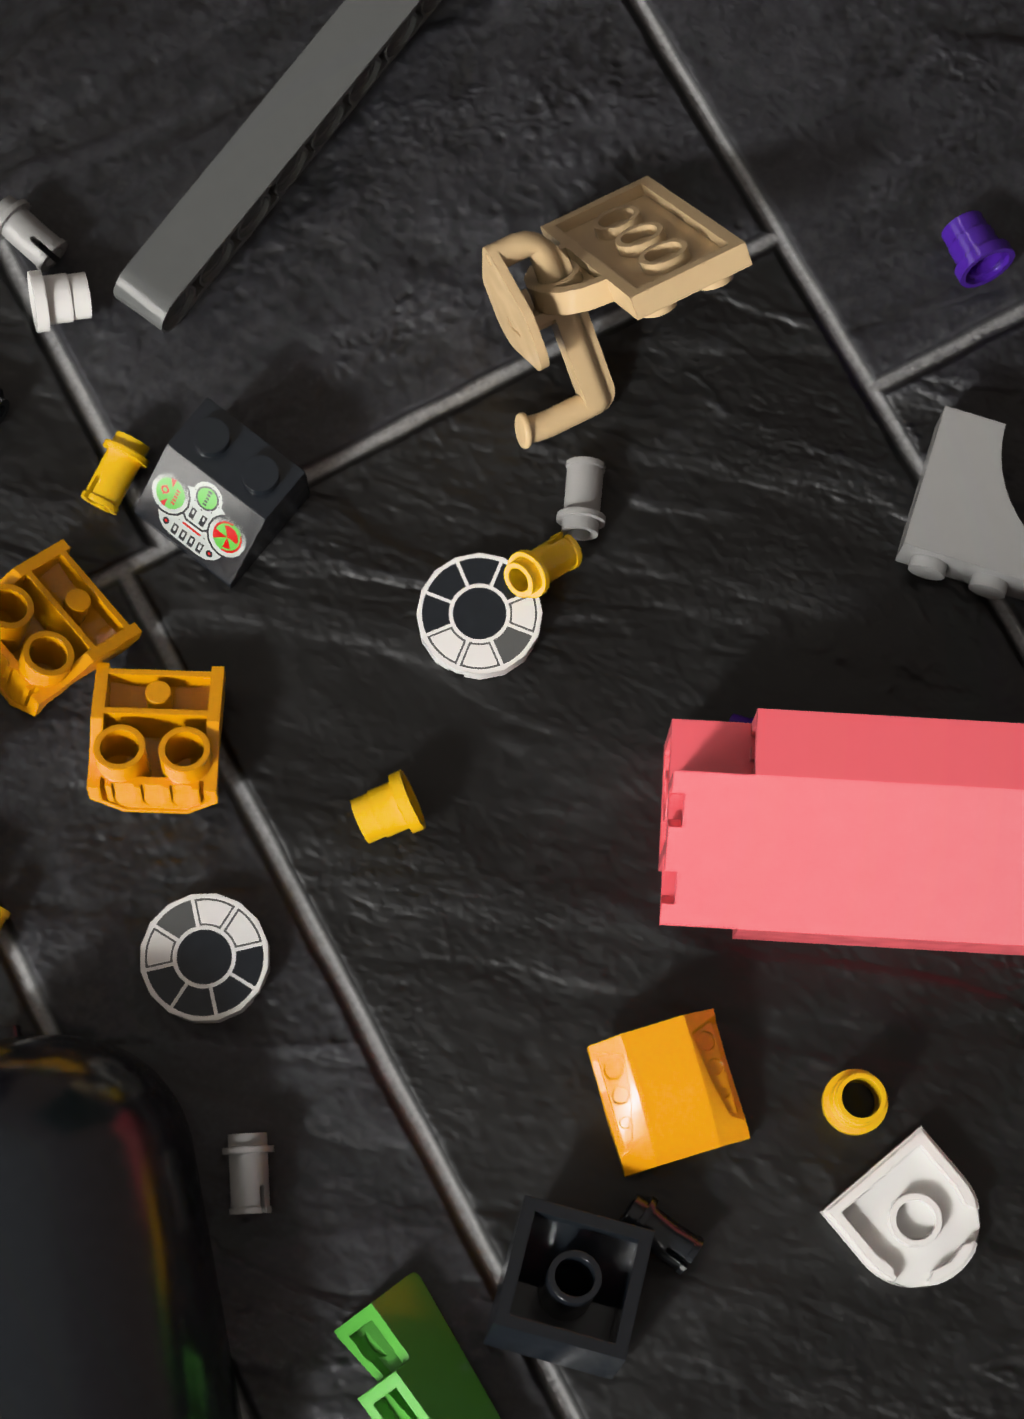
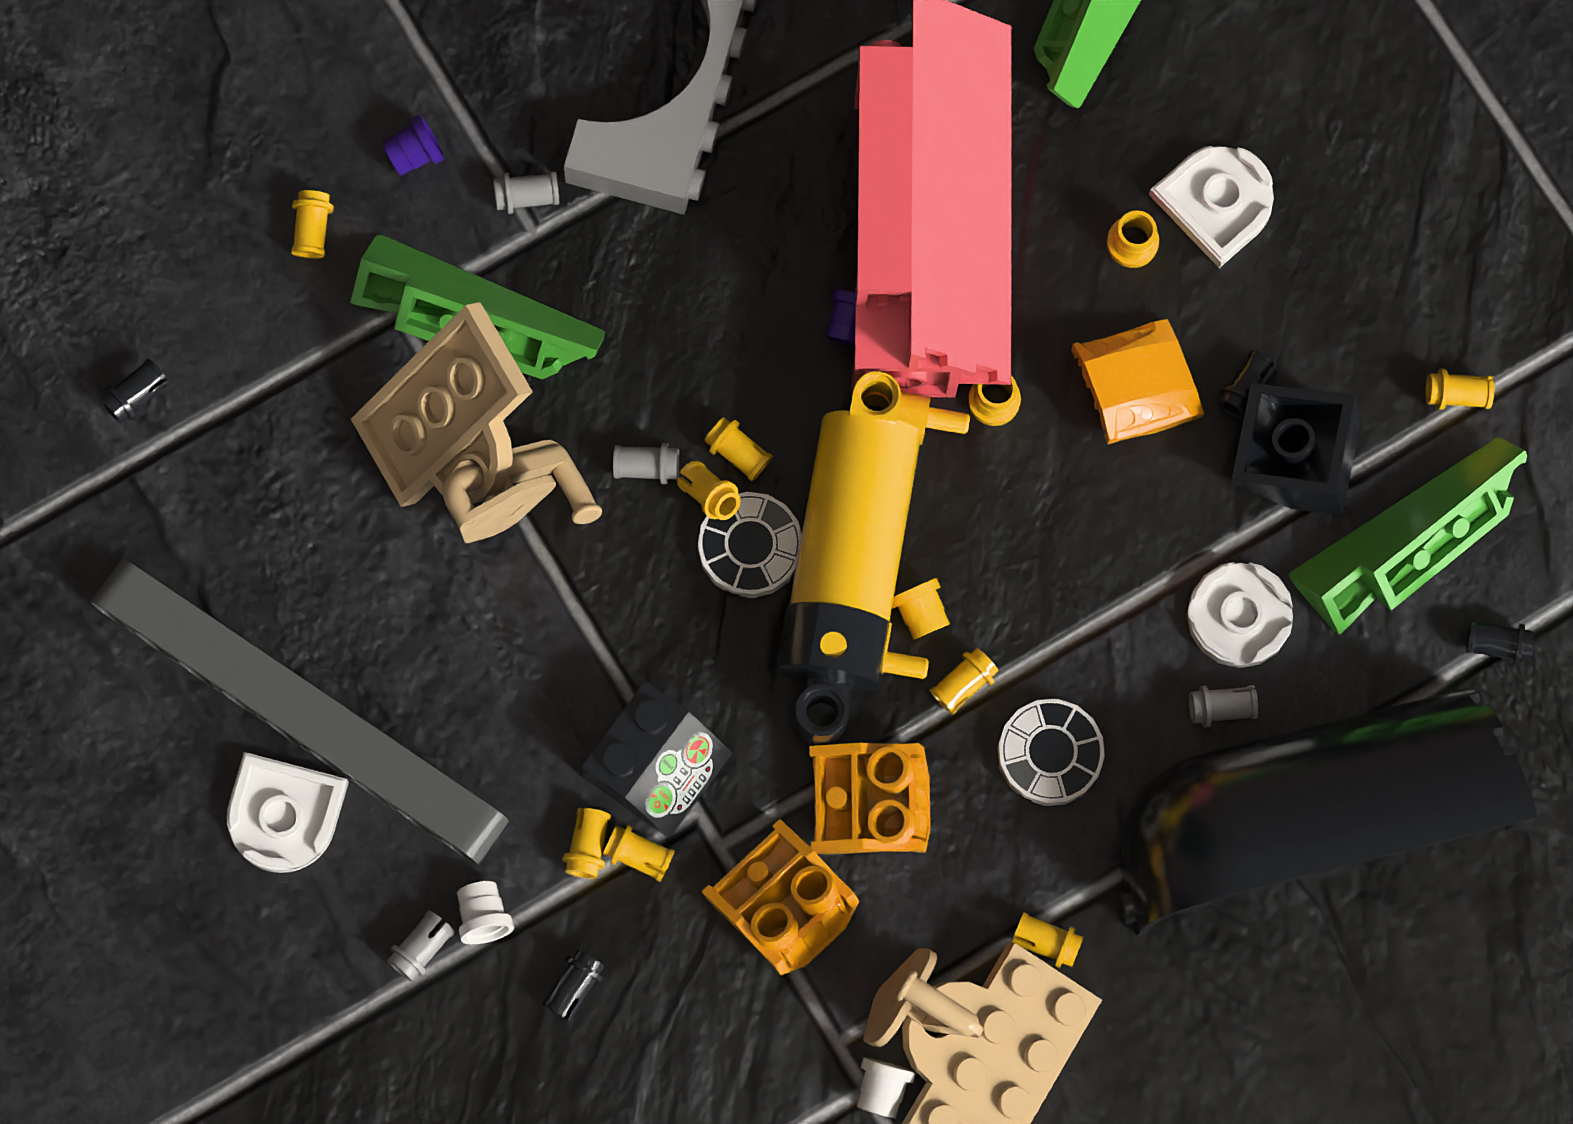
camera: 95 degrees left, 0 degrees up
(130, 416) = (587, 843): none -> yellow pin
(192, 95) = (283, 813): none -> white tile
(297, 857) = (964, 680): none -> yellow pin
(365, 1205) = (1240, 614): none -> white tile
(454, 720) = (852, 550): none -> yellow piece
(597, 604) = (738, 448): none -> yellow pin
(638, 932) = (993, 413): none -> yellow piece
(775, 307) = (432, 292): none -> bright green wedge
(882, 135) = (311, 223): none -> yellow pin
(920, 373) = (525, 191): none -> light grey pin

